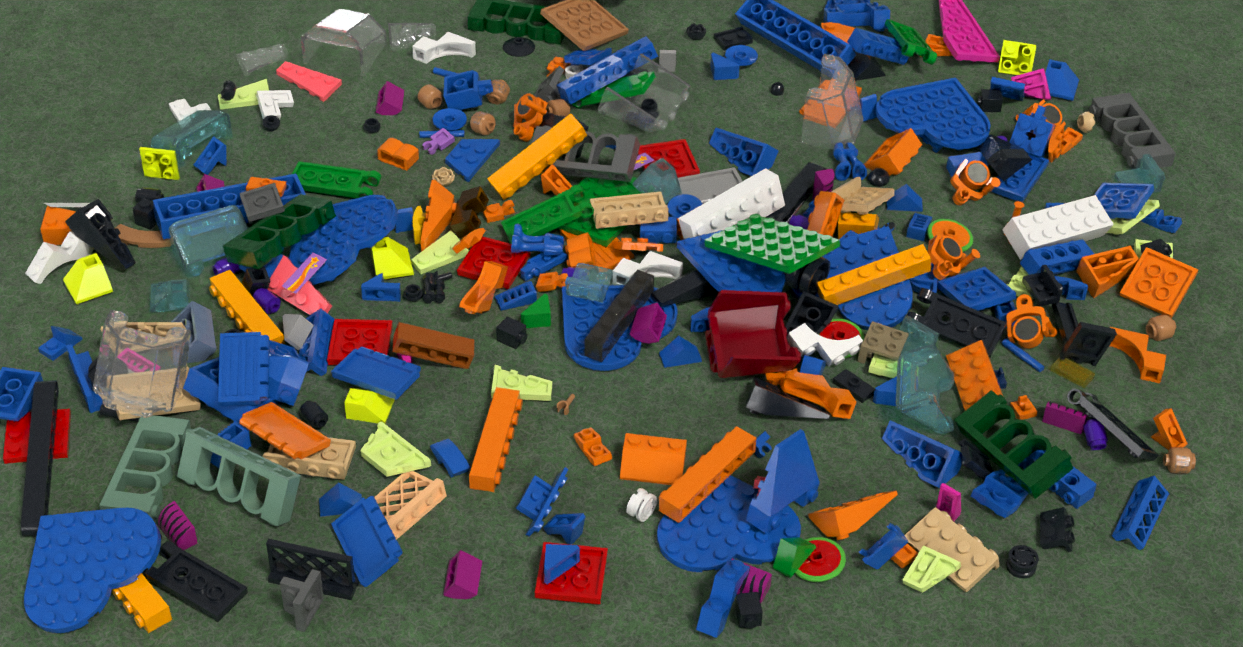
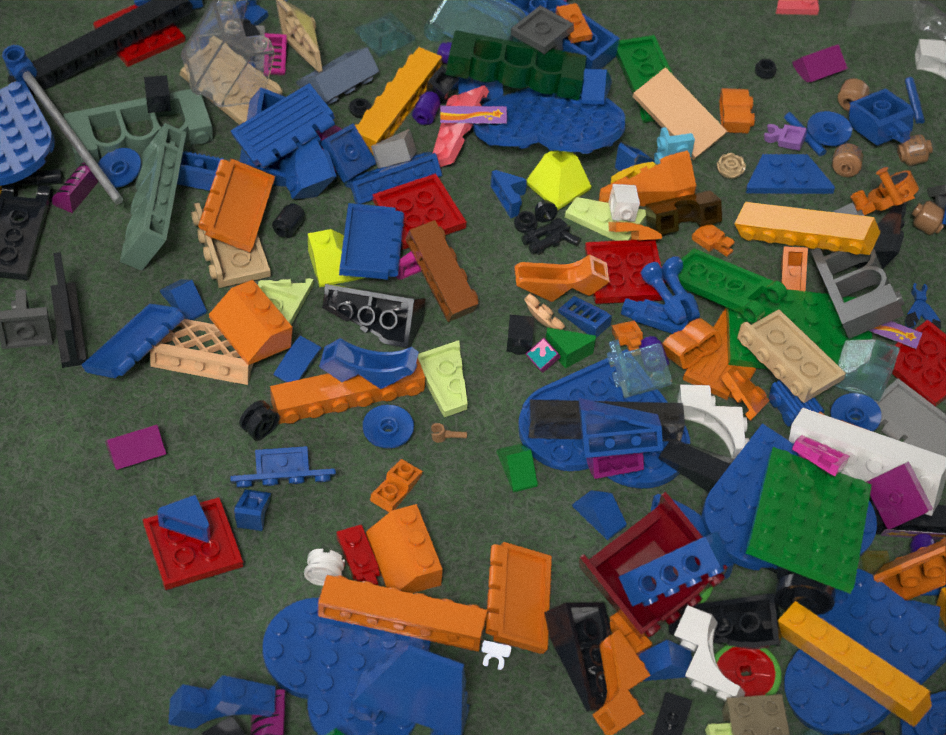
camera: 60 degrees right, 10 degrees up
(23, 512) = (22, 69): none -> flat silver piece
(136, 435) = (157, 94): none -> black brick
(181, 485) = (121, 166): none -> blue dish
(339, 199) = (596, 86): none -> blue slope
(384, 176) = (679, 111): none -> light nougat tile
(407, 461) = (251, 323): none -> orange slope
(412, 277) = (545, 211): none -> black plate
(416, 192) = (671, 145): none -> medium azure bracket
(440, 395) = (384, 314): none -> black wedge
(442, 234) = (624, 202): none -> white brick
(491, 495) = (259, 420): none -> black wheel
(500, 314) = (542, 313): none -> light nougat dish
(504, 403) = (380, 368): none -> blue arch
(536, 329) = (543, 355): none -> tile
(542, 429) = (391, 418): none -> blue dish
(617, 377) = (518, 467): none -> green slope
(627, 486) = (358, 554): none -> red hinge
(643, 305) = (617, 430): none -> blue wedge
(723, 414) = (518, 597): none -> orange hinge
(726, 220) = (821, 455): none -> dark pink wing
(764, 310) = (708, 550): none -> blue brick
(772, 202) = (899, 496): none -> magenta plate

